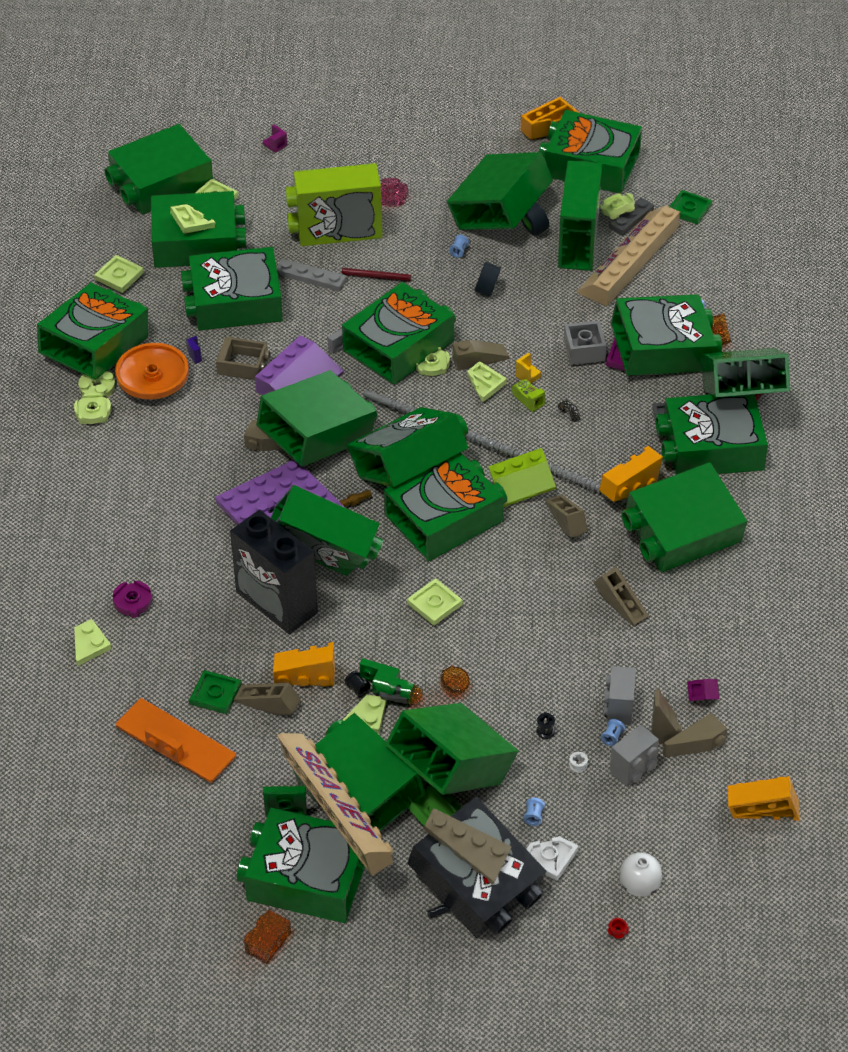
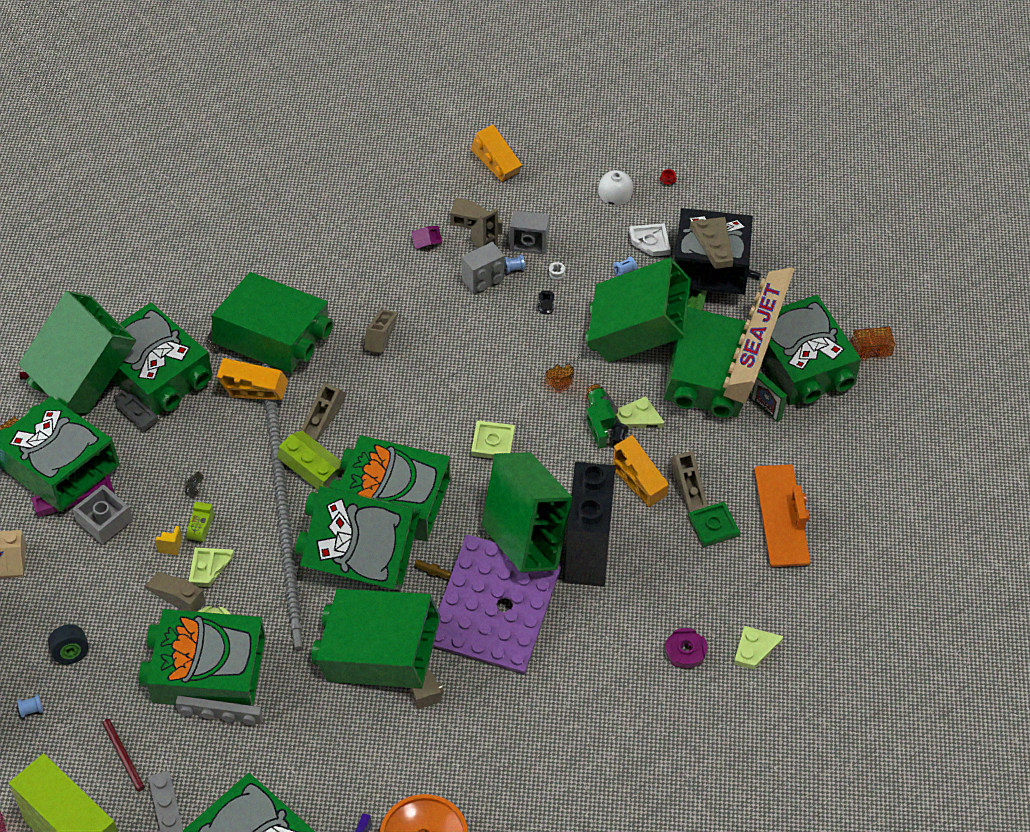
camera: 130 degrees left, 5 degrees up
(241, 347) = (344, 795): dark tan window -> none
(295, 363) = (322, 716): medium lavender slope -> none

